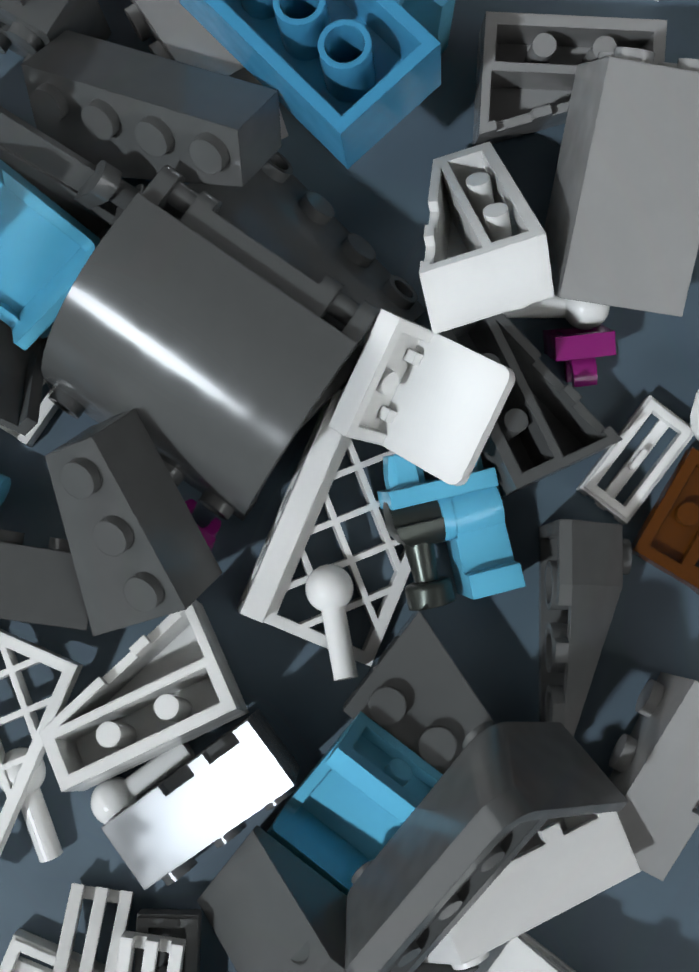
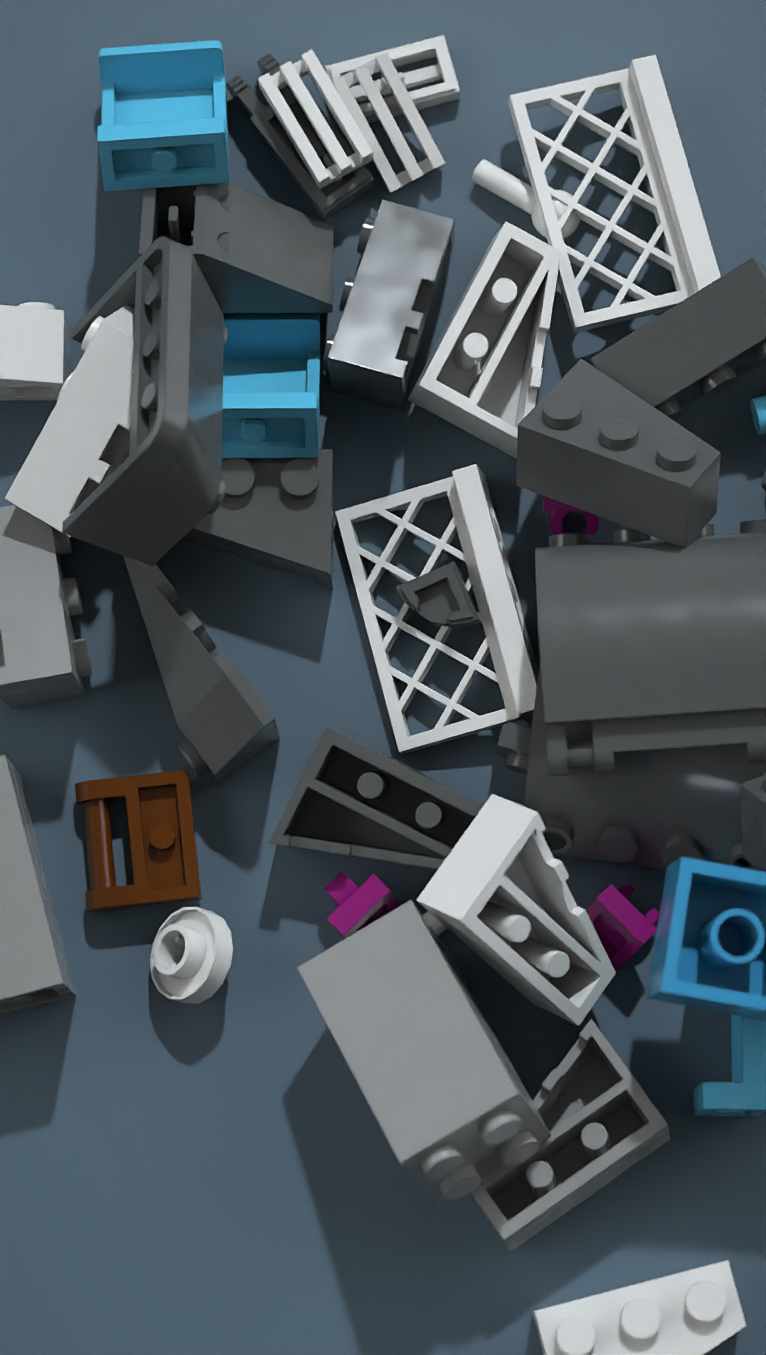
camera: 145 degrees right, 5 degrees down
(119, 793) = (461, 258): white bar -> none
(329, 591) = (416, 542): white bar -> none
(345, 533) = (441, 598): none -> dark grey tile
(403, 198) = (620, 924): none -> magenta tile
(423, 398) = (462, 737): white bracket -> none
(465, 517) = (373, 682): medium azure hips -> none
(606, 498) = (240, 802): white tile -> none

